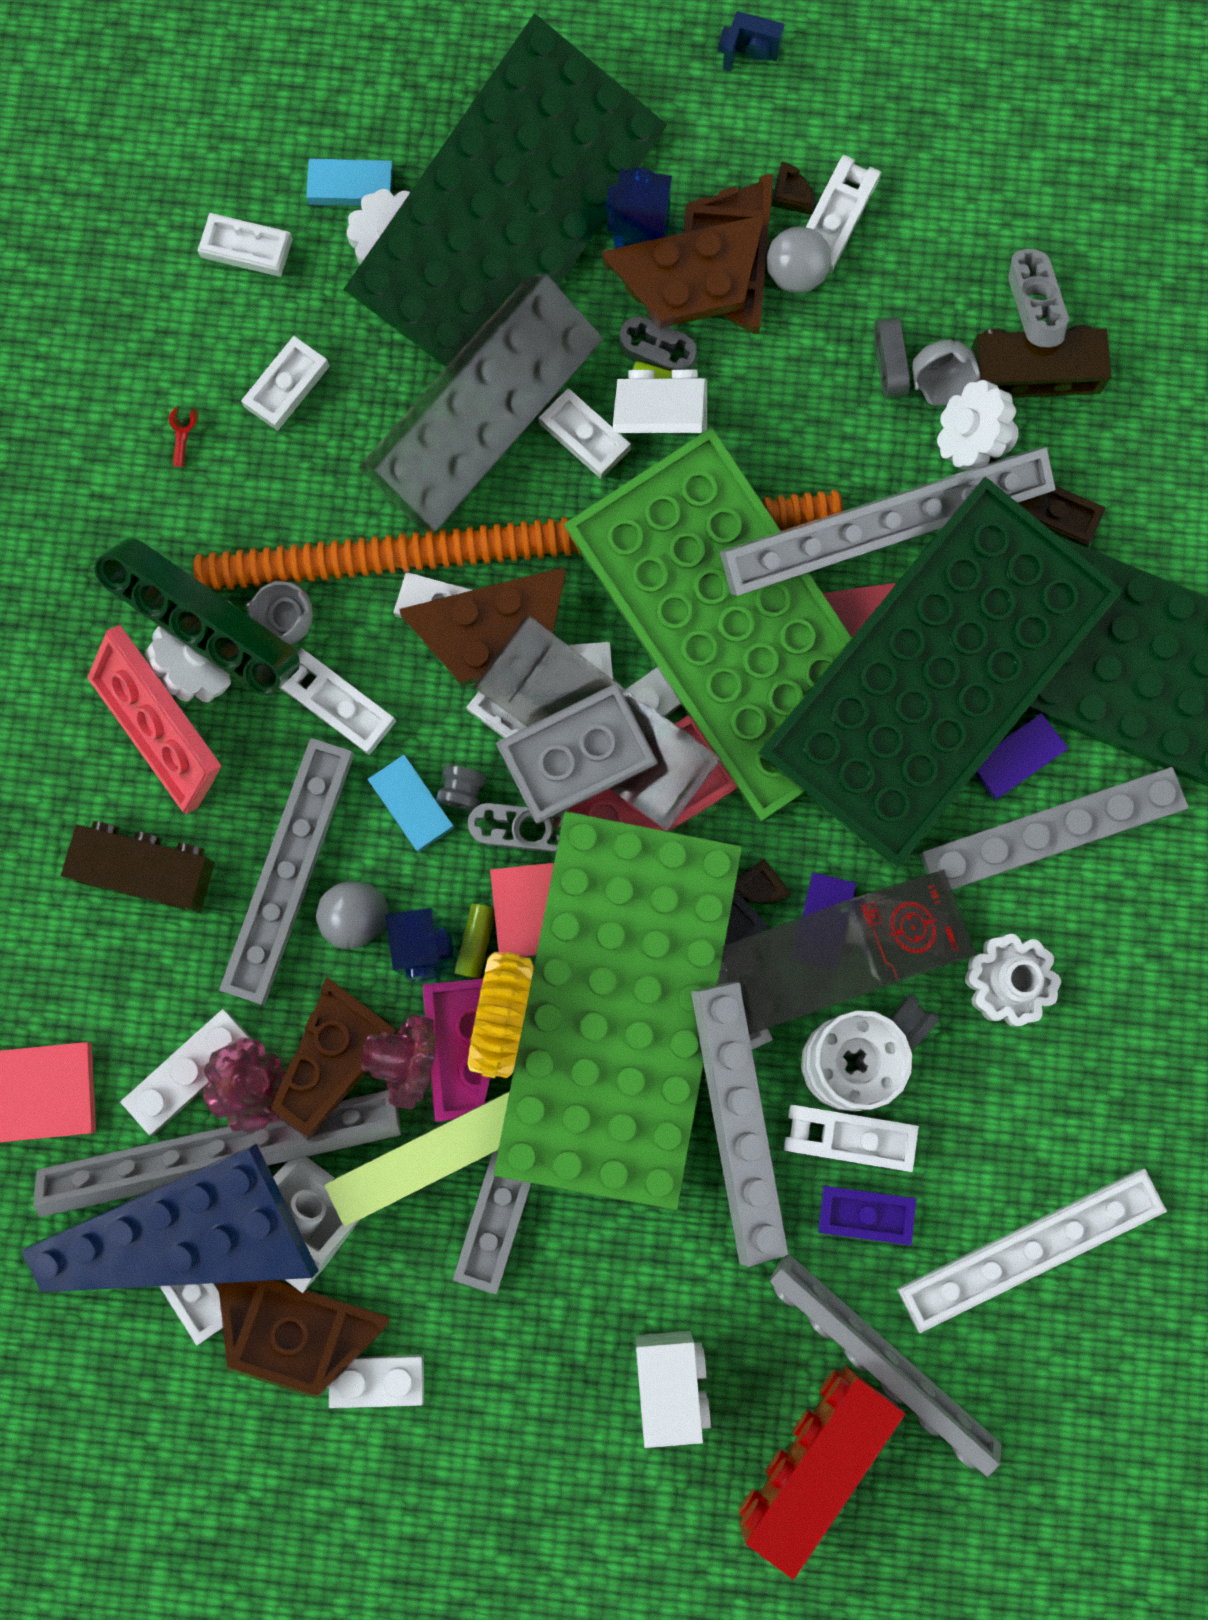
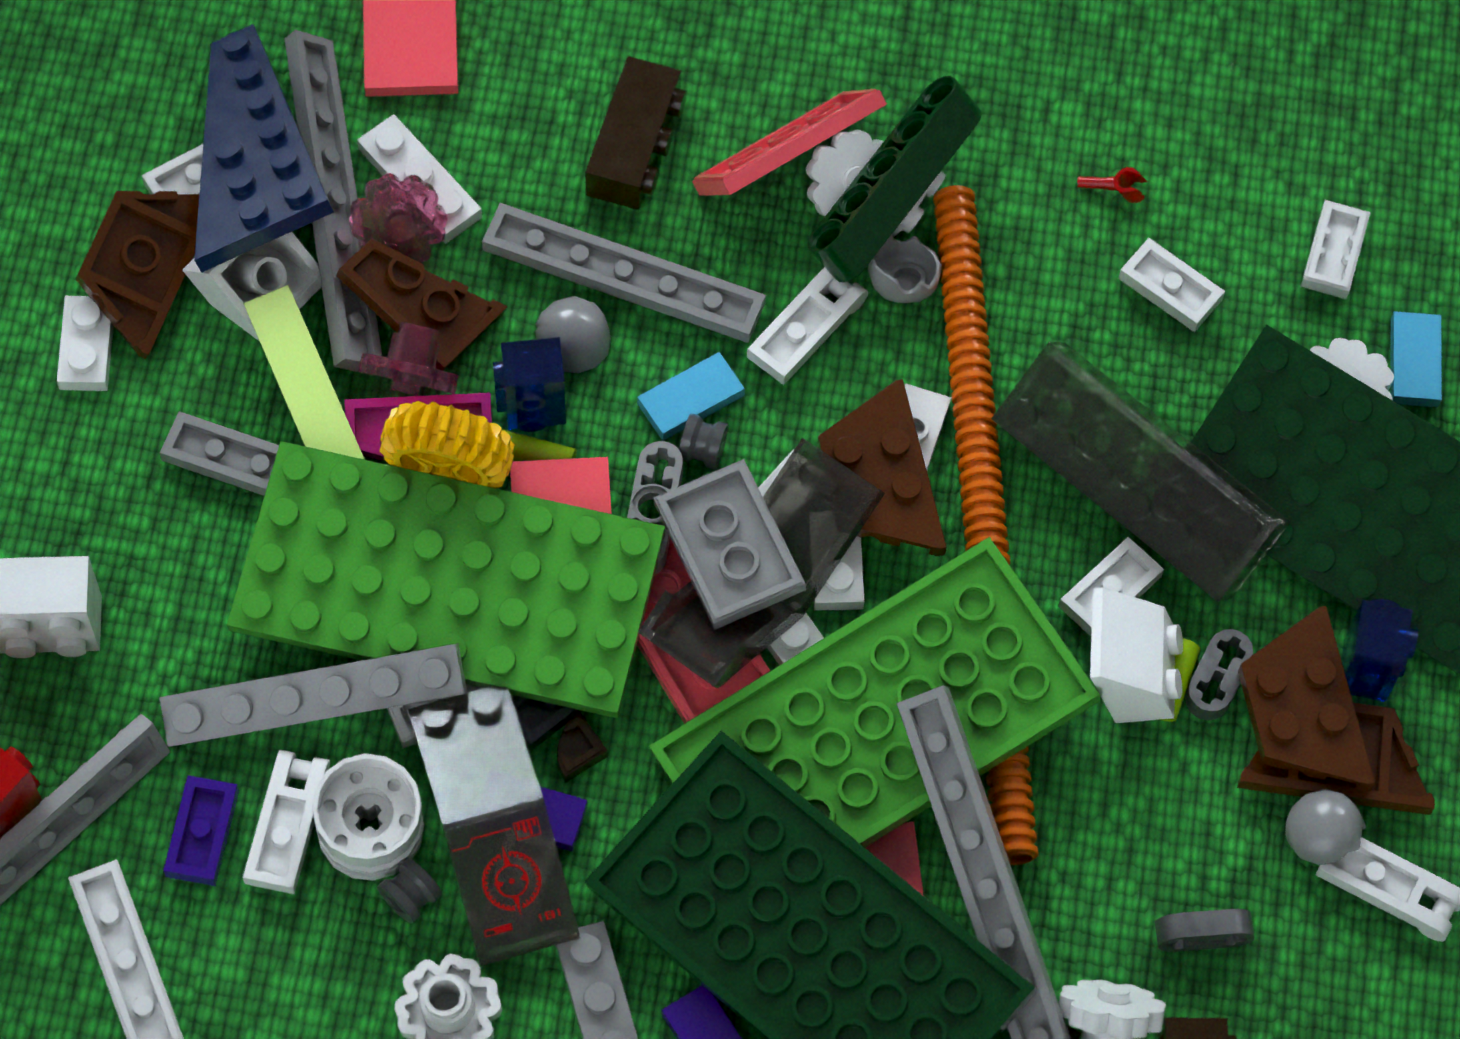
camera: 85 degrees right, 15 degrees down
(792, 191) = (1422, 837): dark brown tile -> none
(944, 370) = (1187, 983): light grey hair -> none

